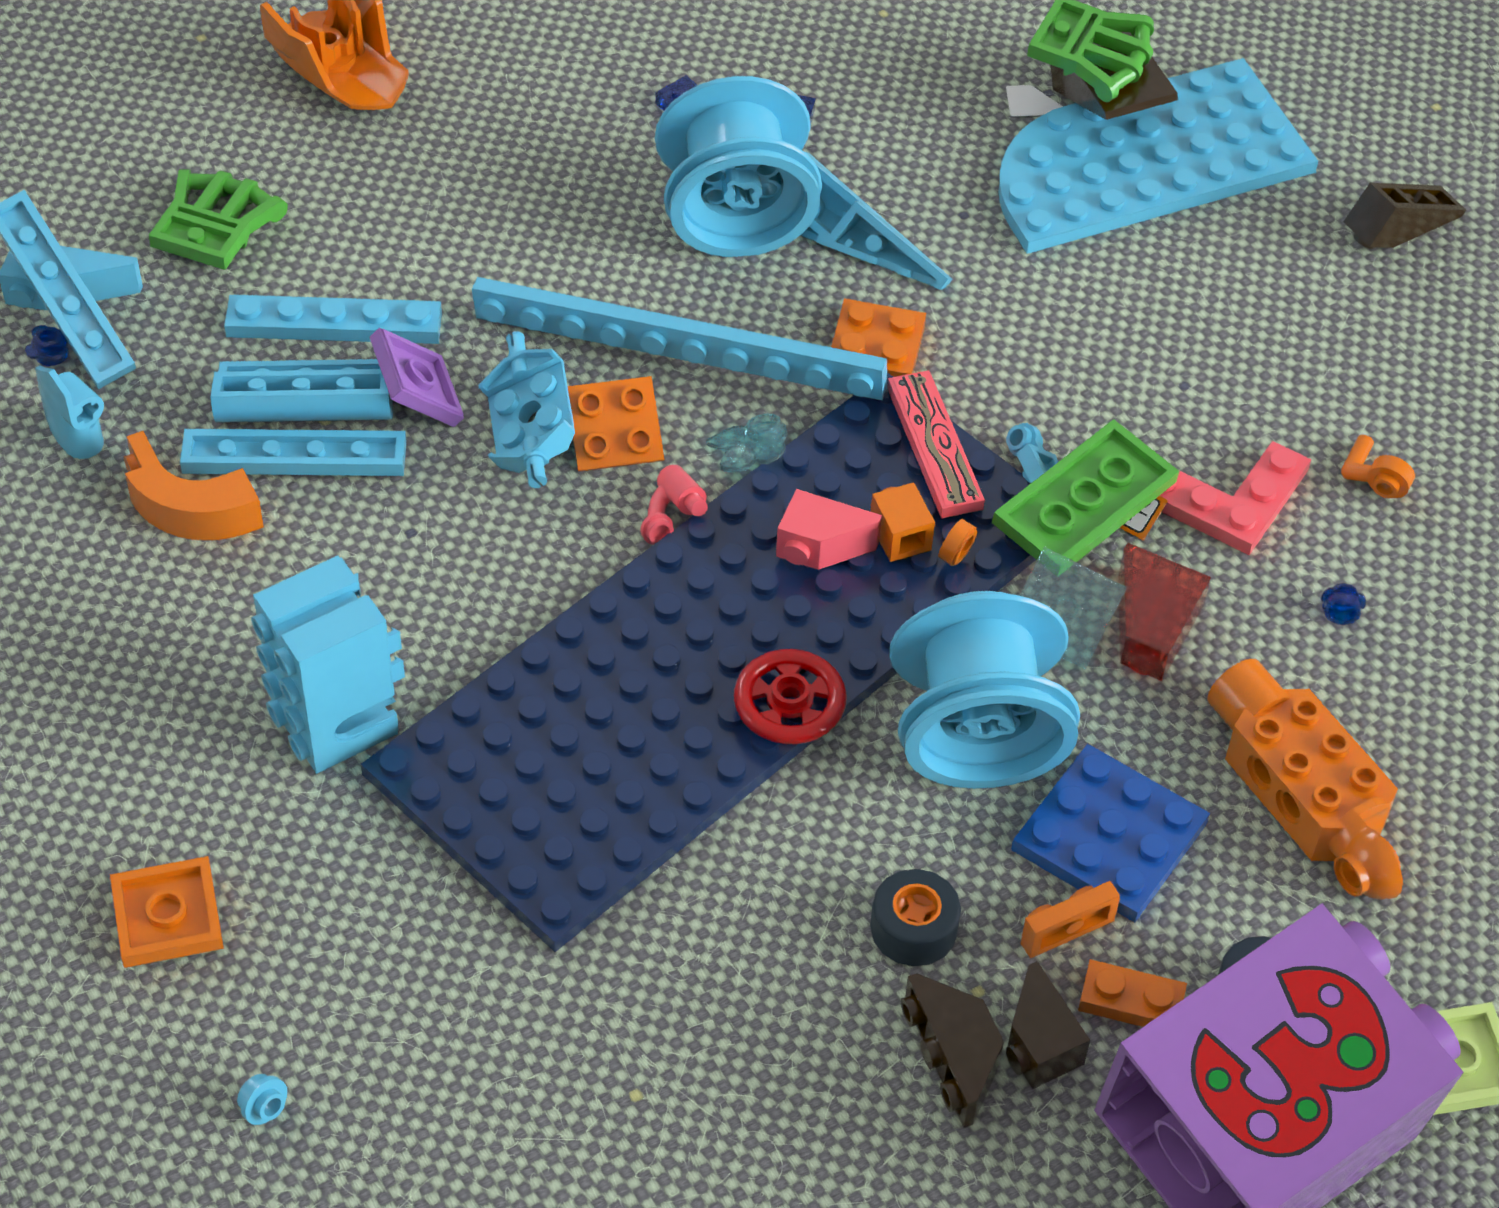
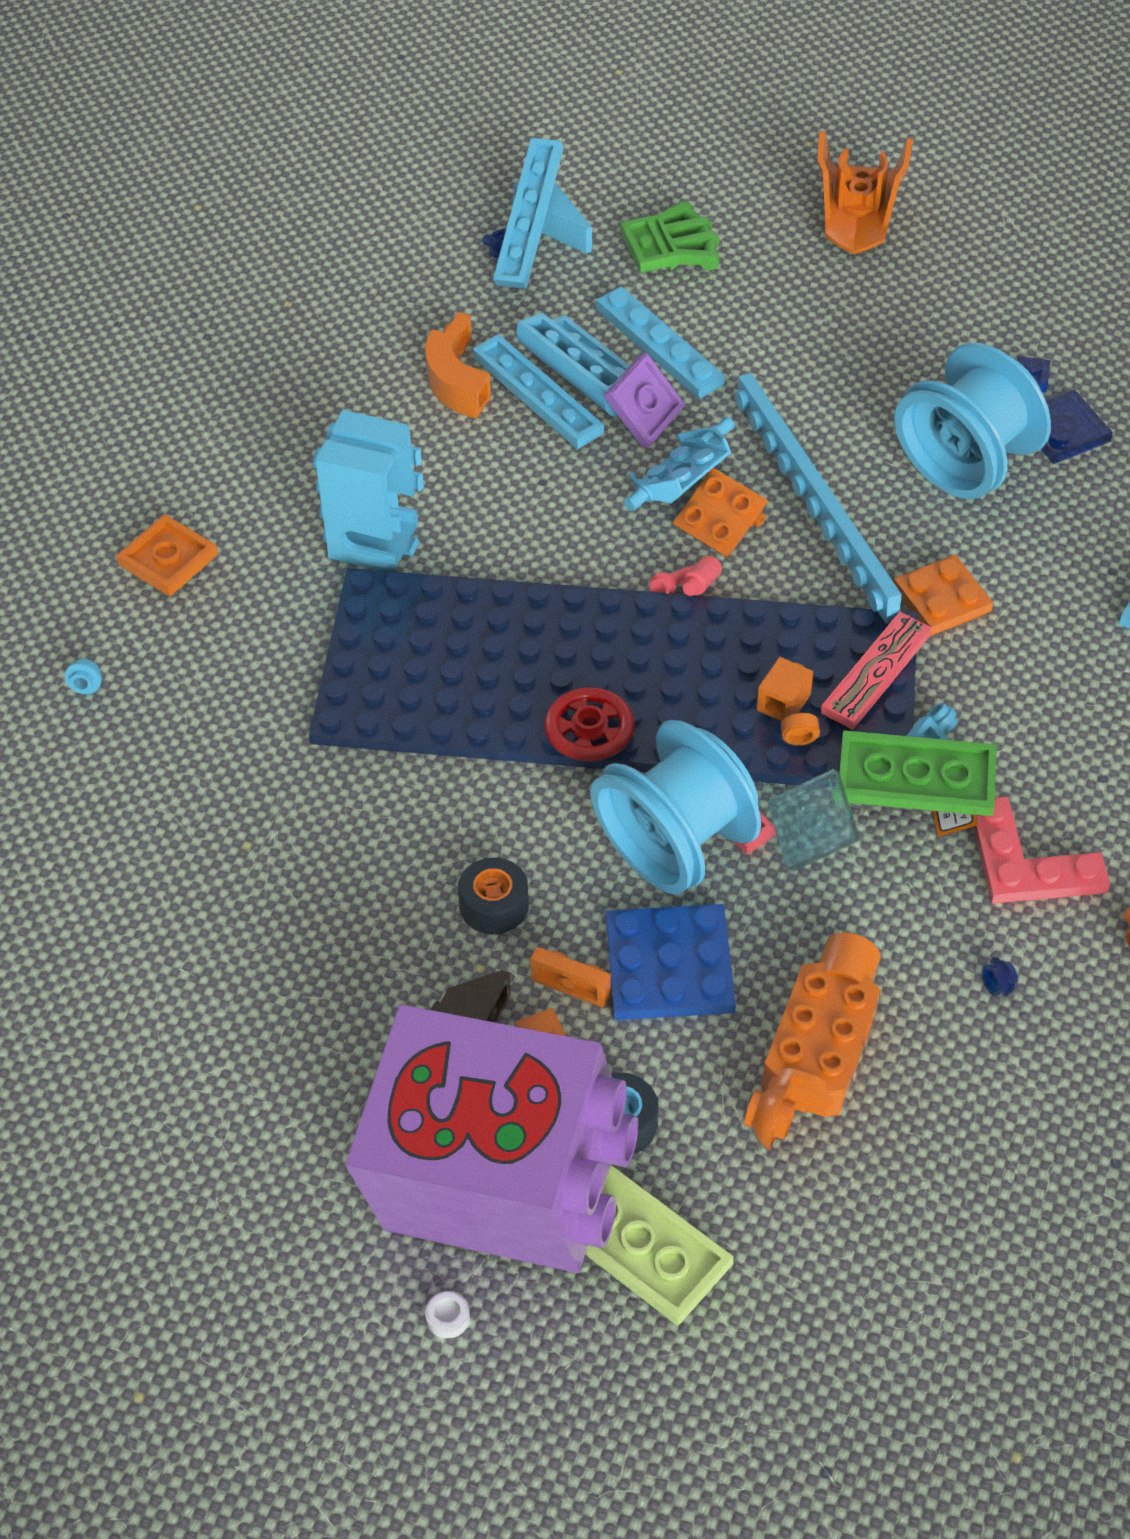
camera: 55 degrees right, 0 degrees up
(71, 412) = (448, 276): medium azure panel -> none
(756, 442) = (781, 586): clear light blue plate -> none
(825, 531) = (731, 656): coral slope -> none
(858, 230) = (1024, 516): medium azure wedge -> none
(956, 1040) = (416, 976): dark brown slope -> none
(1156, 609) = (871, 874): clear red slope -> none

